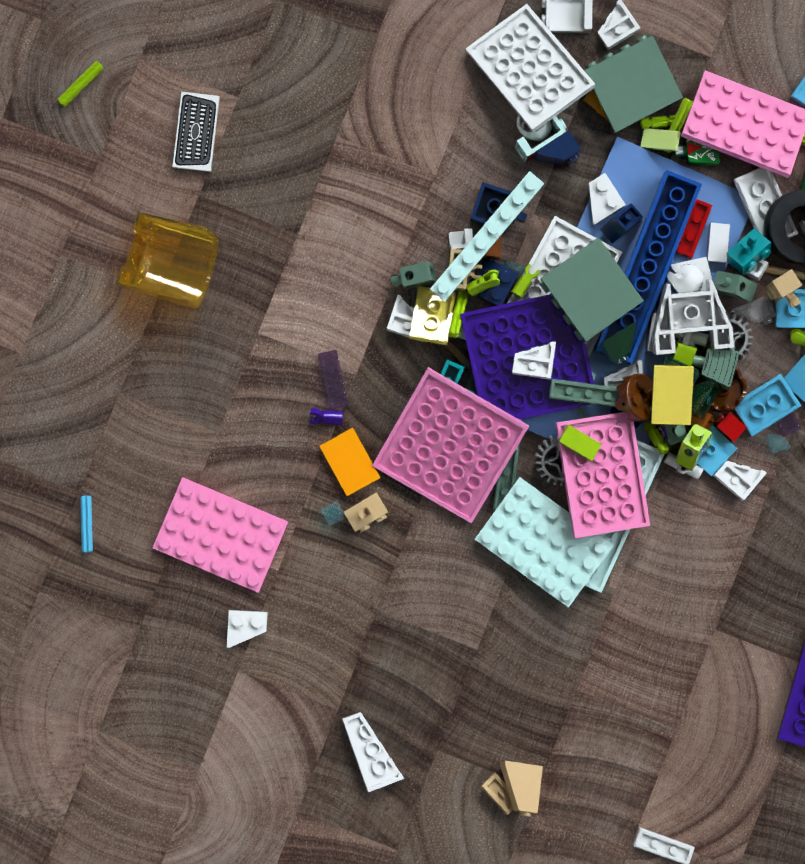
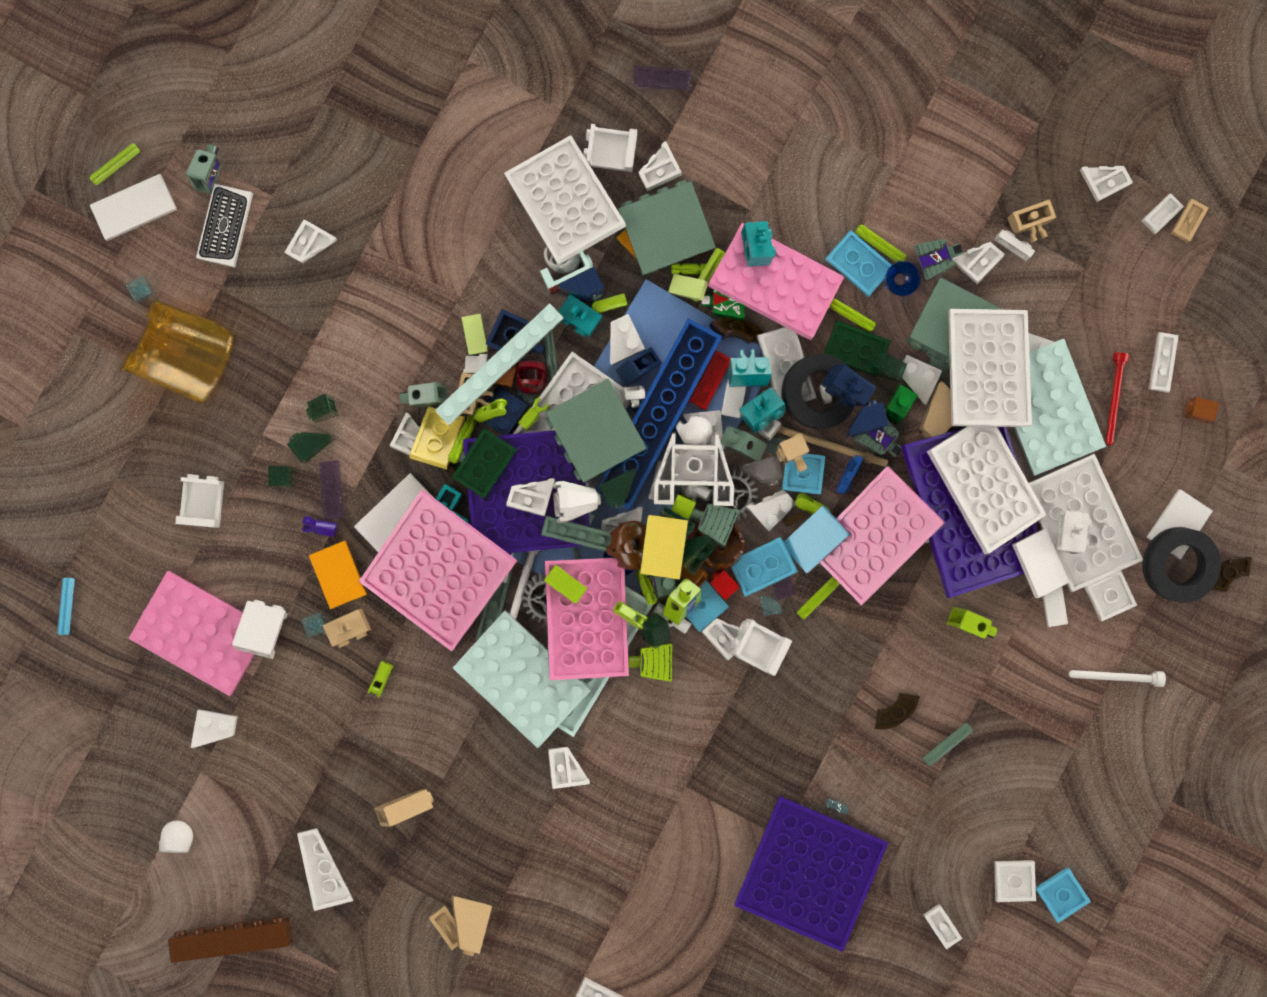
camera: 10 degrees right, 0 degrees up
(104, 124) = (133, 207): none -> white tile
(121, 204) = (139, 289): none -> clear light blue plate
(171, 79) = (204, 169): none -> sand green torso
(207, 405) = (201, 501): none -> white panel
(224, 737) = (176, 837): none -> white helmet
(281, 138) = (308, 242): none -> white wing
(282, 523) = (259, 629): none -> white panel
(283, 371) = (280, 476): none -> clear green brick
(289, 830) = (230, 940): none -> reddish brown brick
(306, 336) = (307, 444): none -> clear green slope
(315, 300) = (321, 408): none -> clear green slope
(394, 395) = (386, 515): none -> white tile
(404, 555) = (381, 676): none -> lime bar
(443, 681) = (404, 808): none -> tan slope
(455, 210) = (474, 334): none -> yellowish green tile
(484, 334) = (484, 463): none -> dark green tile
(517, 245) = (531, 376): none -> dark red helmet
(533, 224) = (550, 355): none -> sand green axle
(533, 448) = (522, 583): none -> white piece
(557, 180) = (579, 316): none -> teal brick
(577, 360) = (573, 501): none -> white cone
(584, 165) = (610, 303): none -> lime bar
(595, 625) = (565, 769): none -> white wing
(622, 250) = (633, 394): none -> white tile
(644, 465) = (629, 614): none -> lime bar
(669, 479) = (656, 630): none -> clear green brick
(672, 510) = (654, 662): none -> lime torso
(712, 175) = (729, 327): none -> dark brown tile
(724, 89) = (757, 243): none -> teal brick
(731, 214) = (749, 371): none -> teal brick
(761, 285) = (772, 445): none -> clear light blue tile
(768, 347) = (772, 509): none -> white wing
(773, 483) = (760, 647): none -> white panel
(790, 355) = (793, 519): none -> dark brown tile

